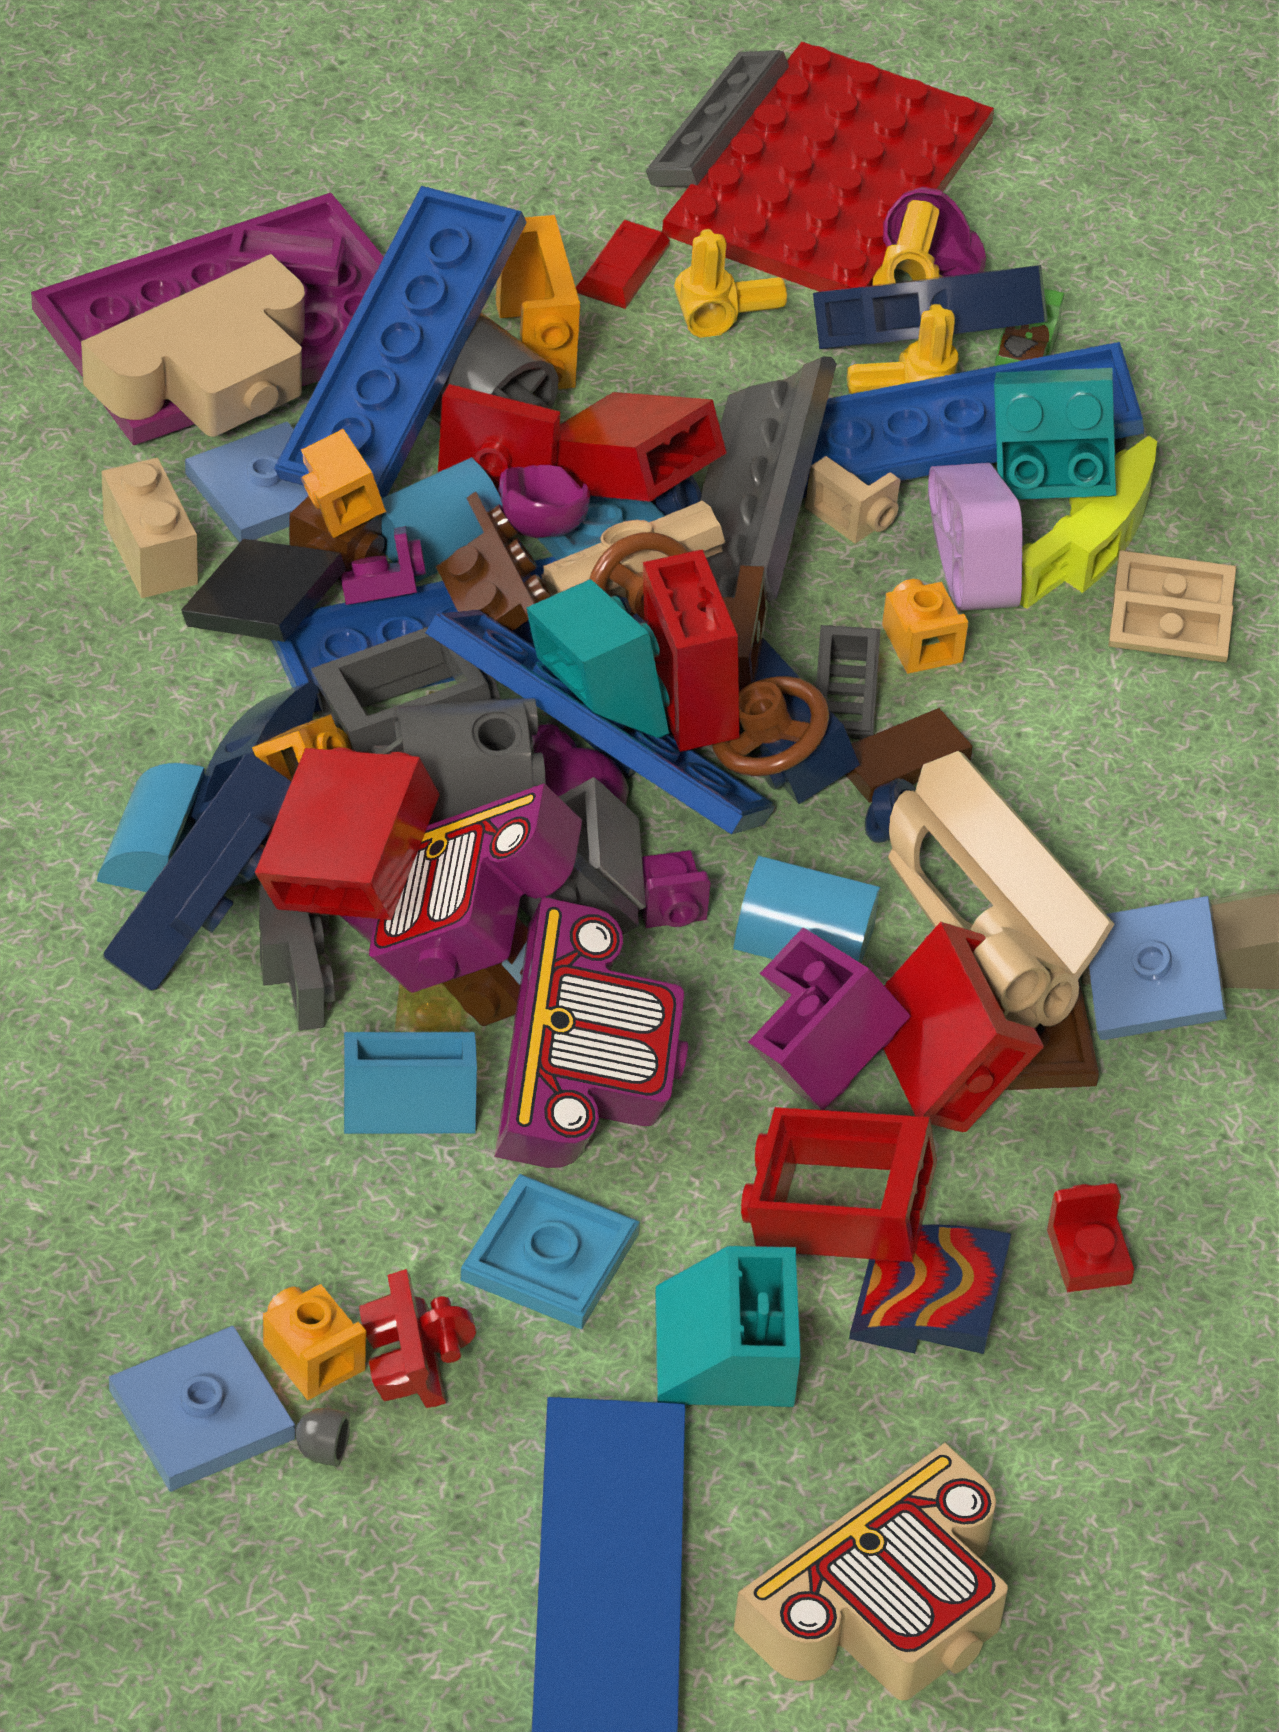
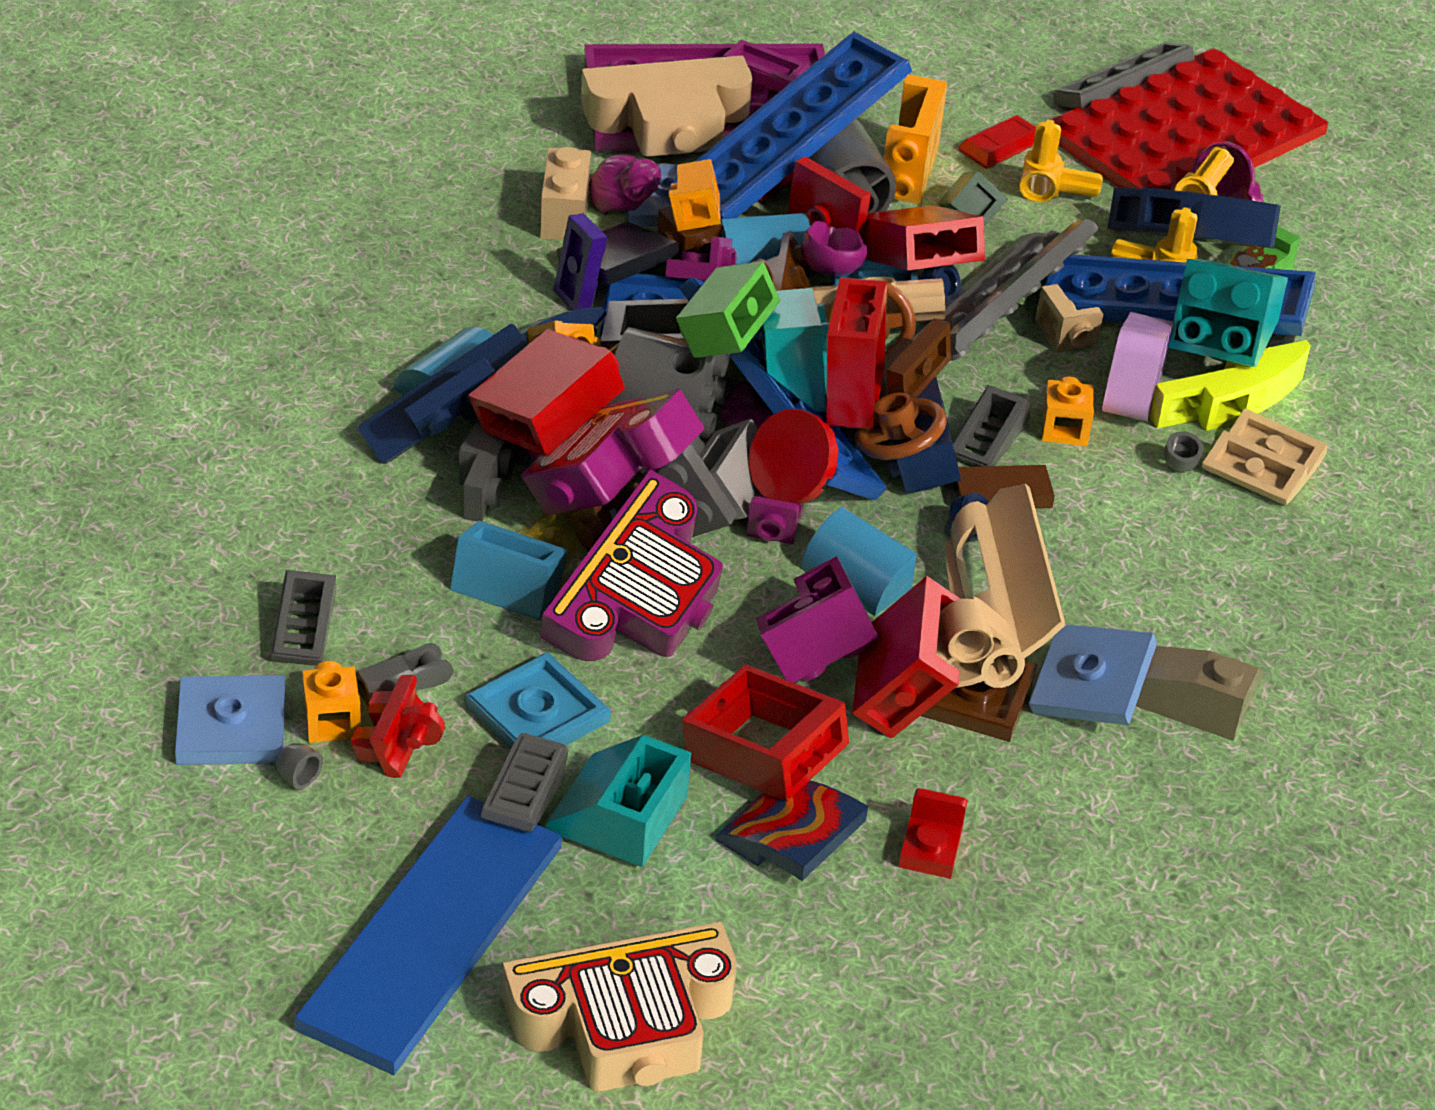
camera: 25 degrees right, 5 degrees down
(192, 1195) = (305, 587): none -> dark grey slope
(220, 485) = (623, 183): none -> magenta hair
(242, 626) = (579, 262): none -> dark purple plate
(366, 1272) = (422, 662): none -> dark grey bar
(524, 650) = (728, 309): none -> bright green brick
(609, 1350) = (527, 777): none -> dark grey slope
(645, 362) = (974, 195): none -> panel
(676, 812) = (793, 456): none -> red tile
(1078, 625) = (1183, 451): none -> dark grey hinge

